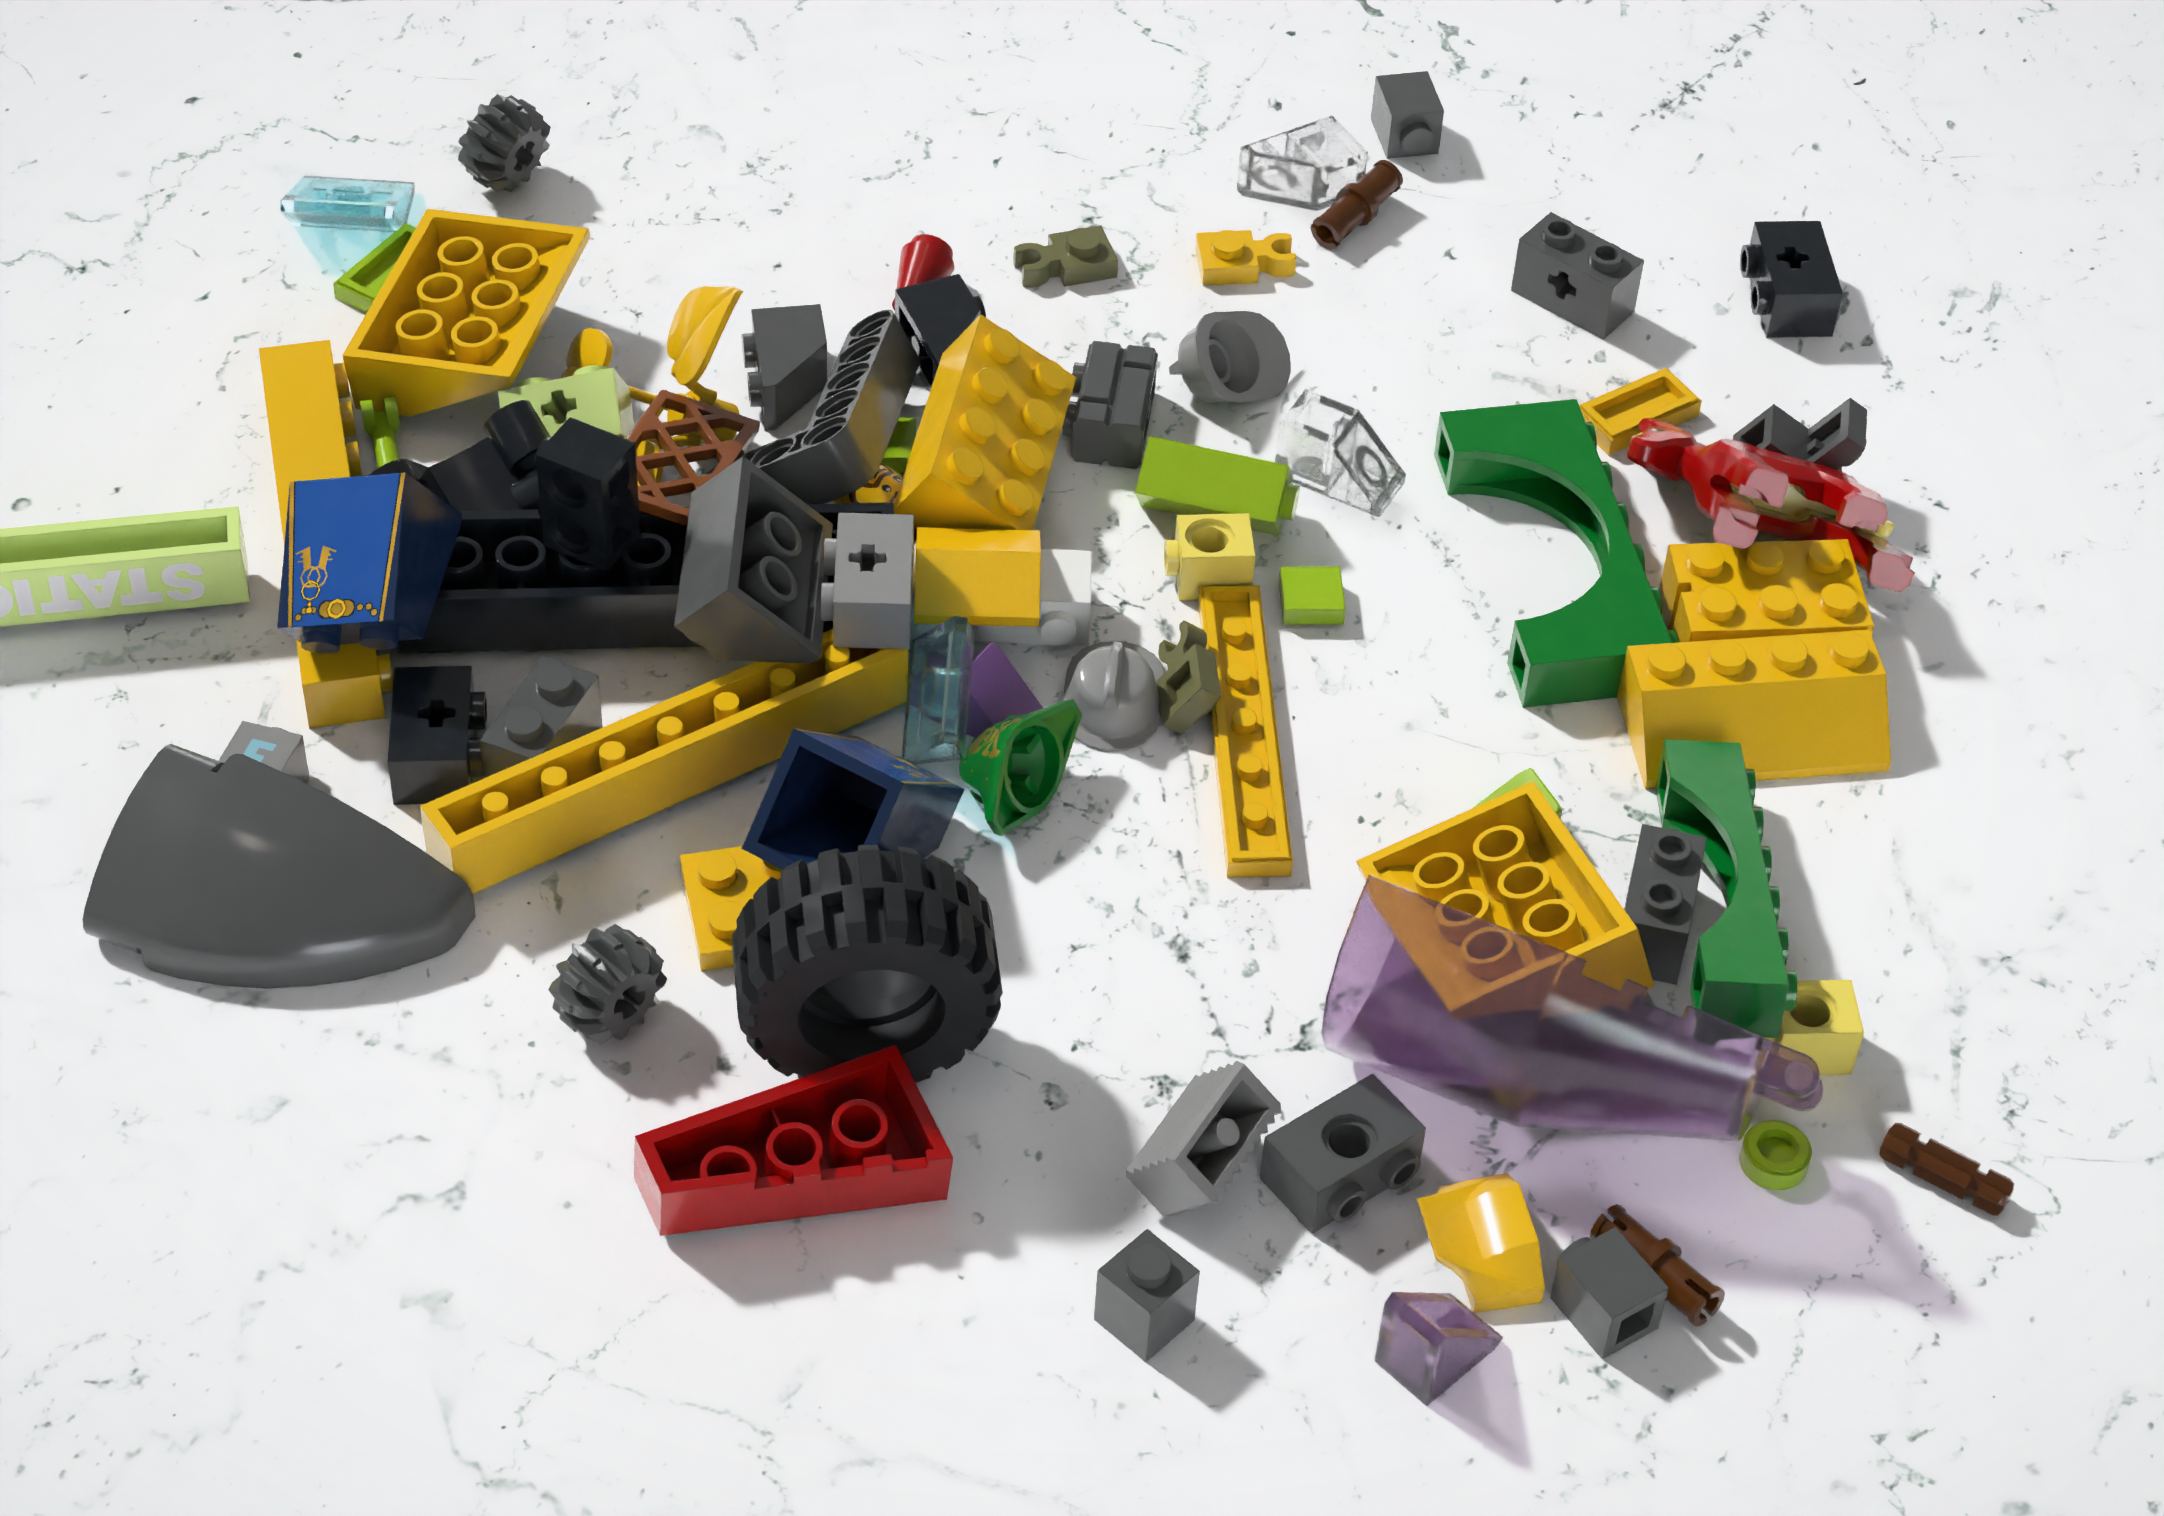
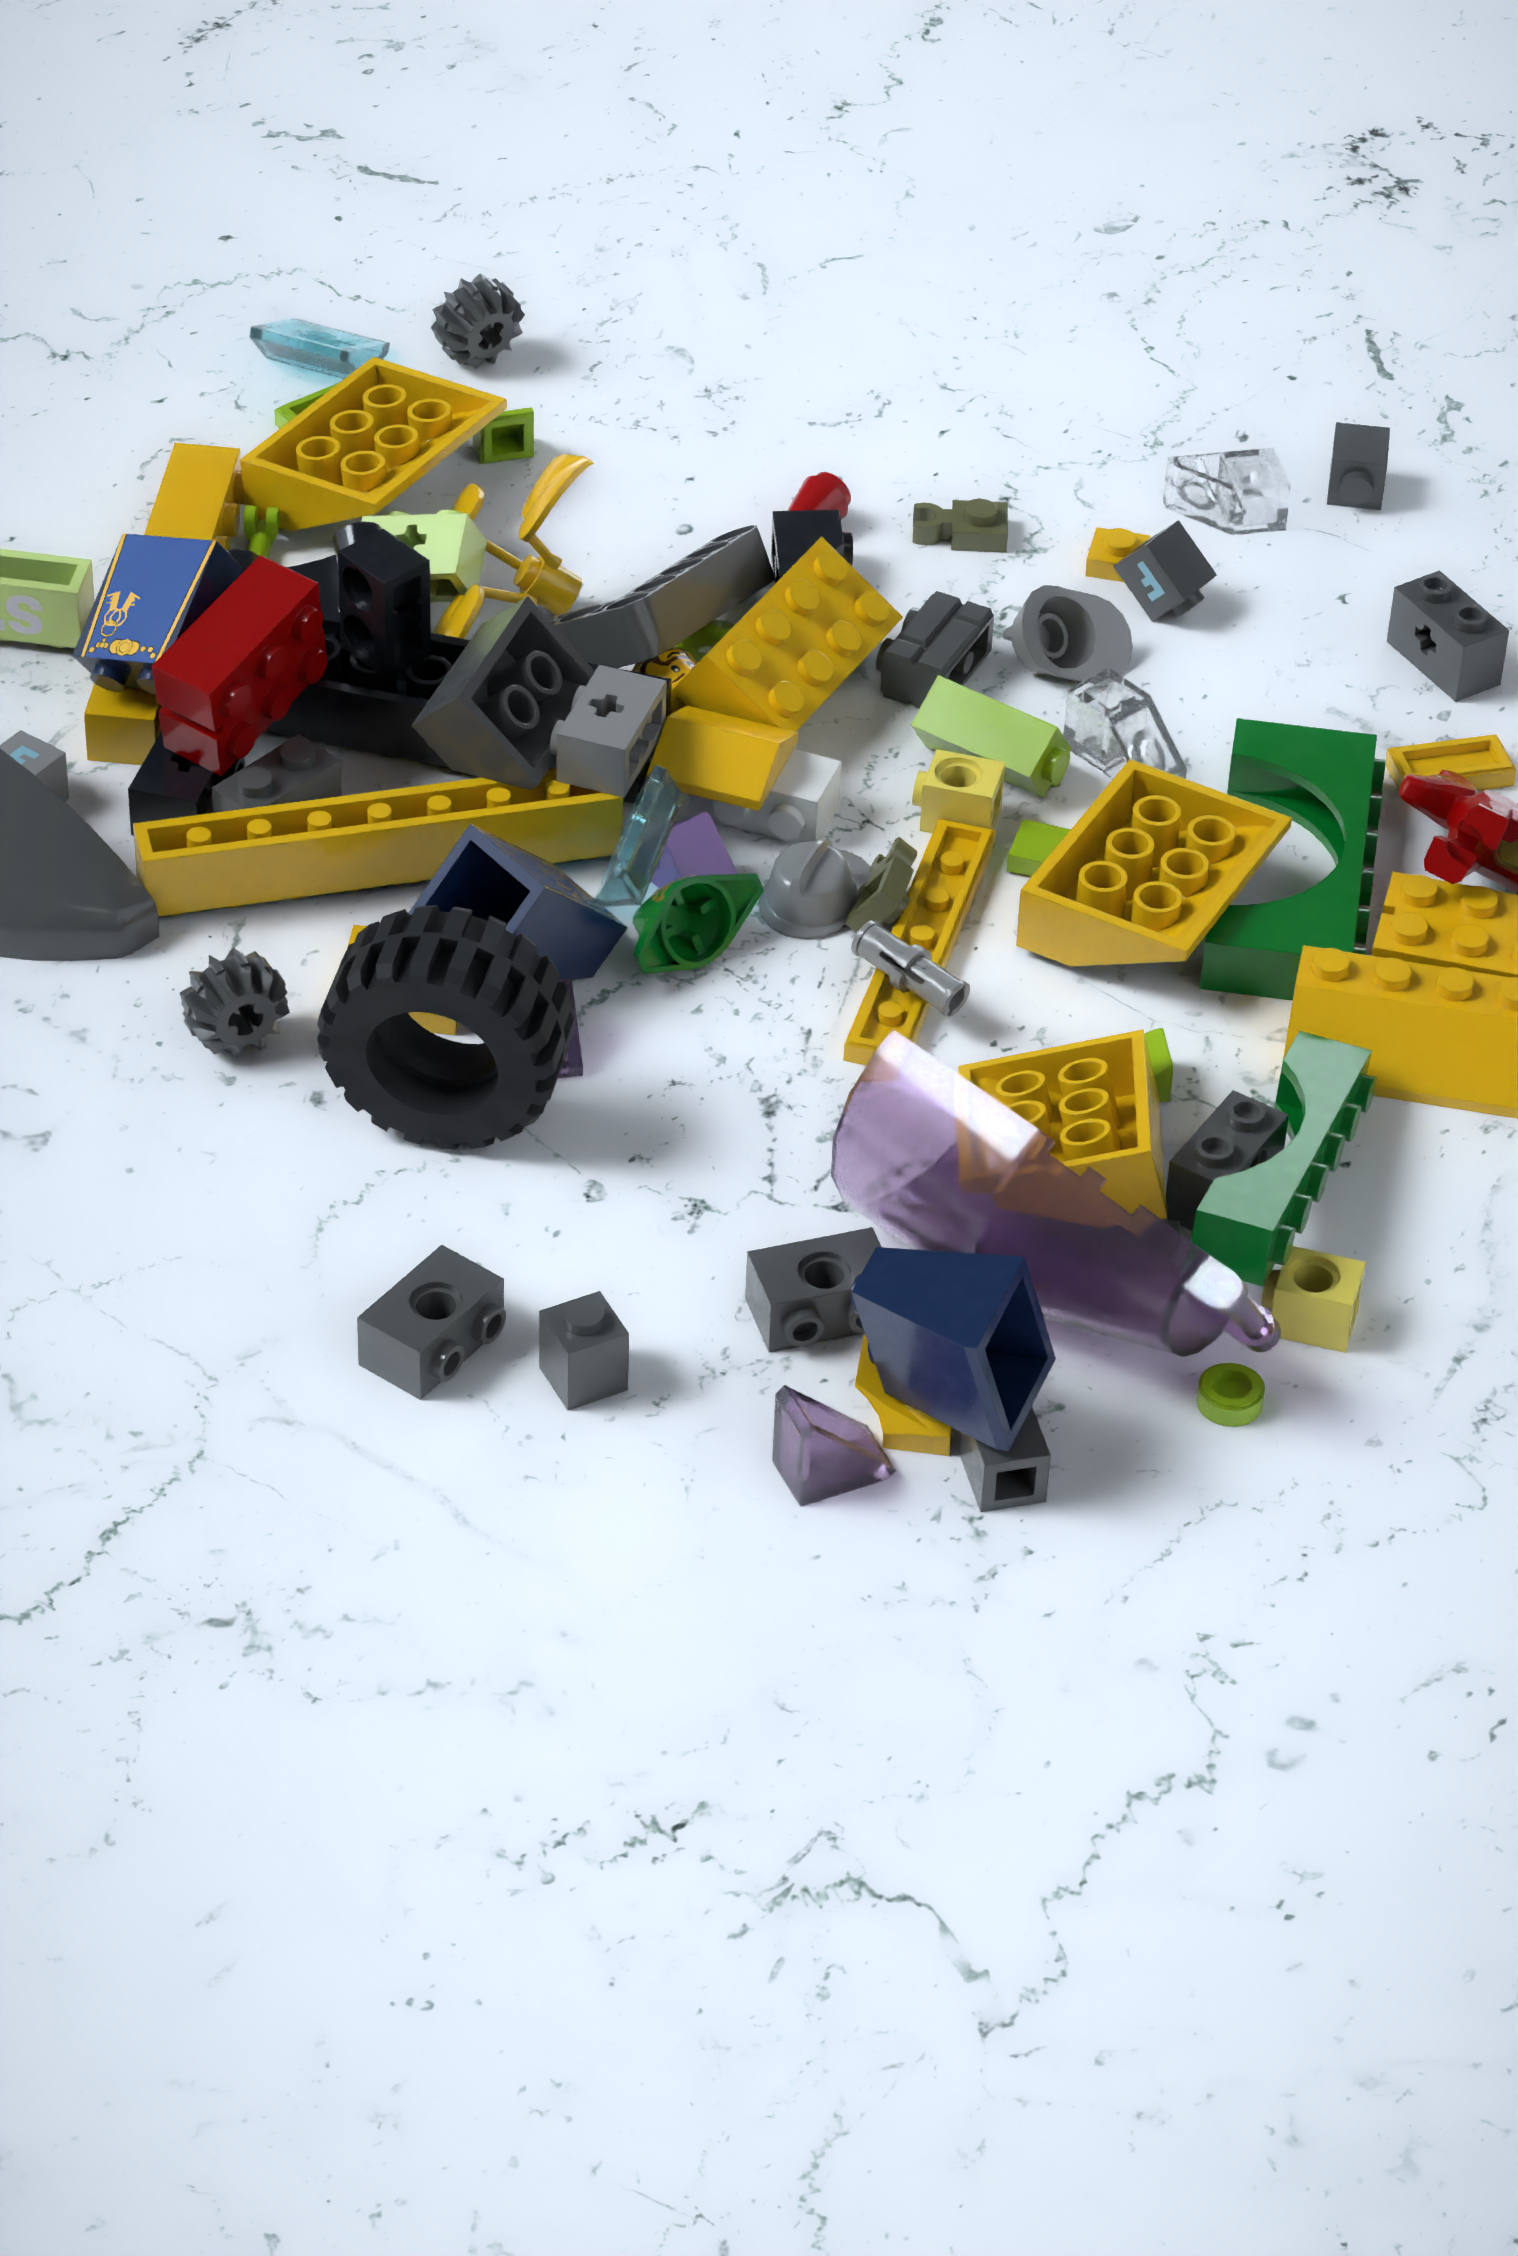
camera: 20 degrees right, 5 degrees down
(470, 601) = (240, 665): none -> red piece
(593, 263) = (506, 437): none -> lime slope
(700, 419) = (534, 576): dark orange window -> none
(788, 360) = (646, 544): dark grey slope -> none
(797, 1151) = (332, 1166): red wedge -> none
(970, 1343) = (431, 1322): none -> dark grey brick
(1203, 1139) = (694, 1244): light grey brick -> none
(1263, 764) = (910, 968): none -> light grey pin
(1292, 268) = (1166, 572): none -> dark grey brick
(1356, 204) = (1267, 533): reddish brown pin -> none
(1443, 602) = (1144, 871): none -> yellow slope
(1540, 1193) = (956, 1337): none -> dark blue slope
(1687, 1287) = (1070, 1451): reddish brown pin -> none
(1947, 1169) = (1386, 1444): reddish brown axle -> none

